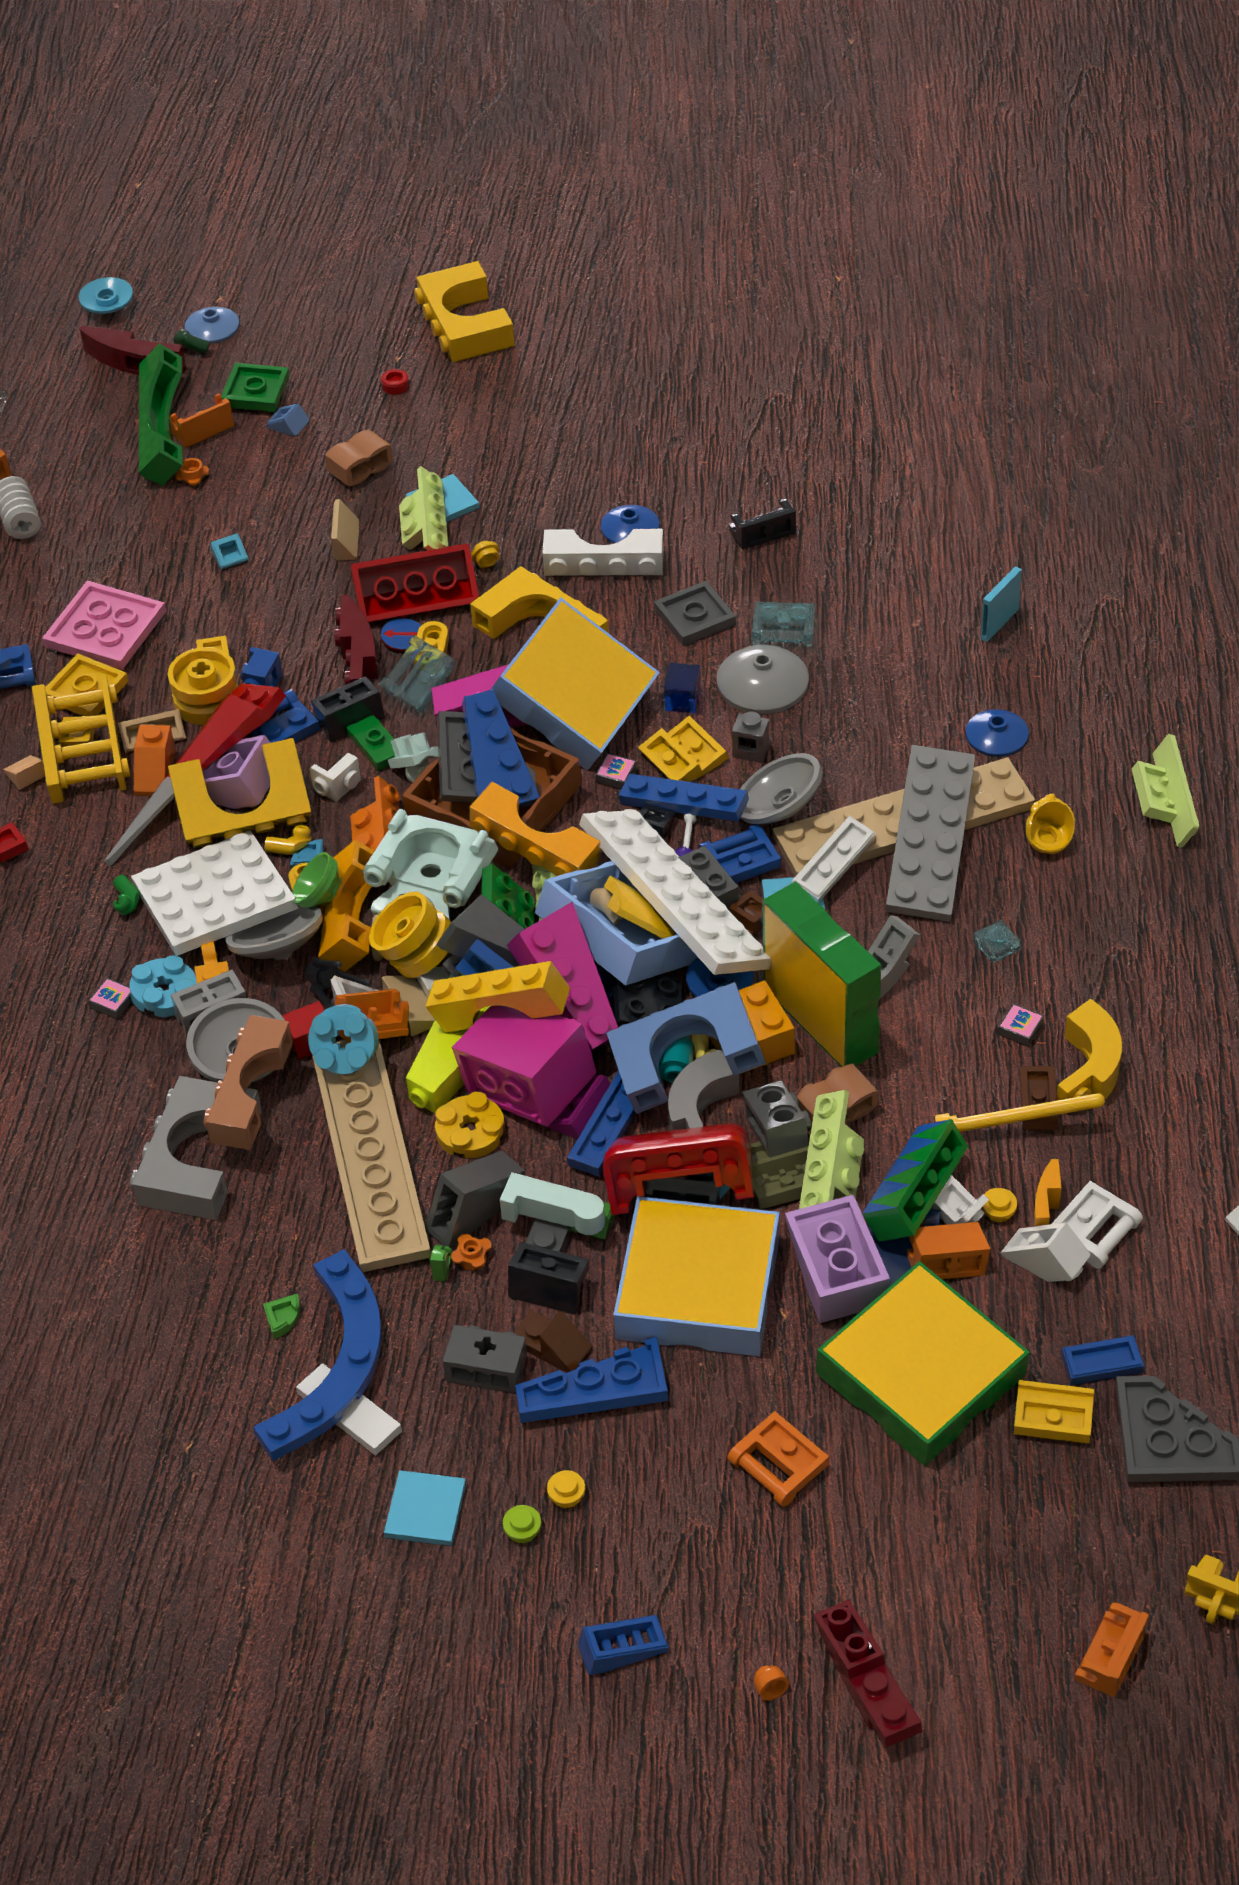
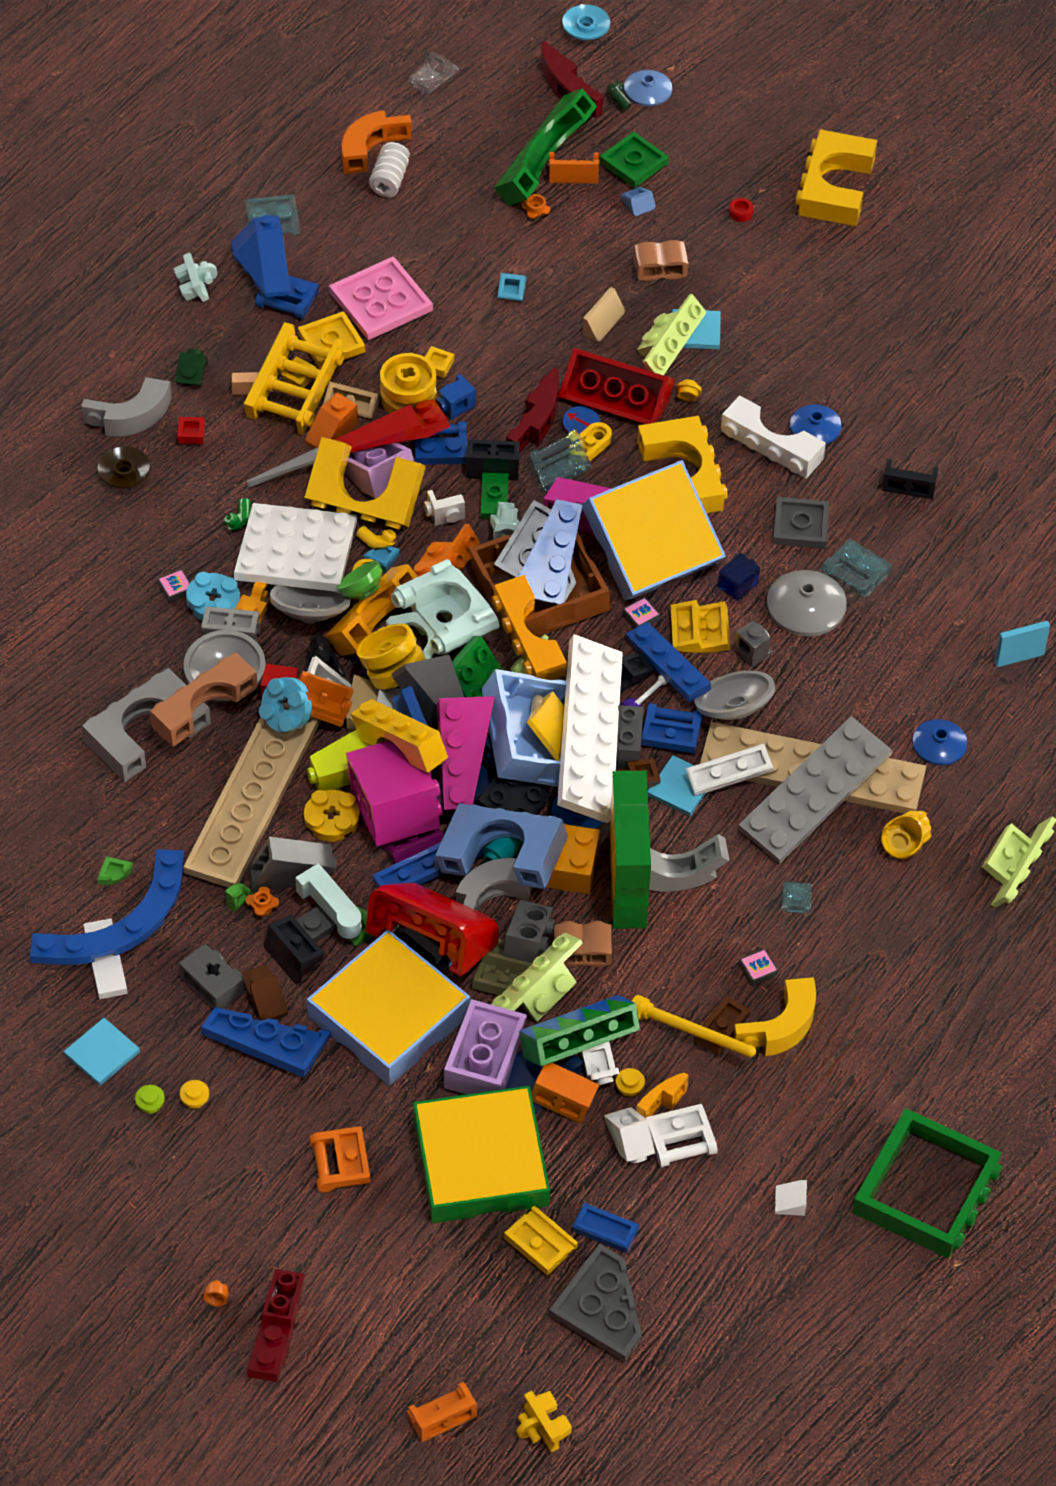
camera: 30 degrees right, 5 degrees up
(609, 1658) = (139, 1219): blue slope -> none

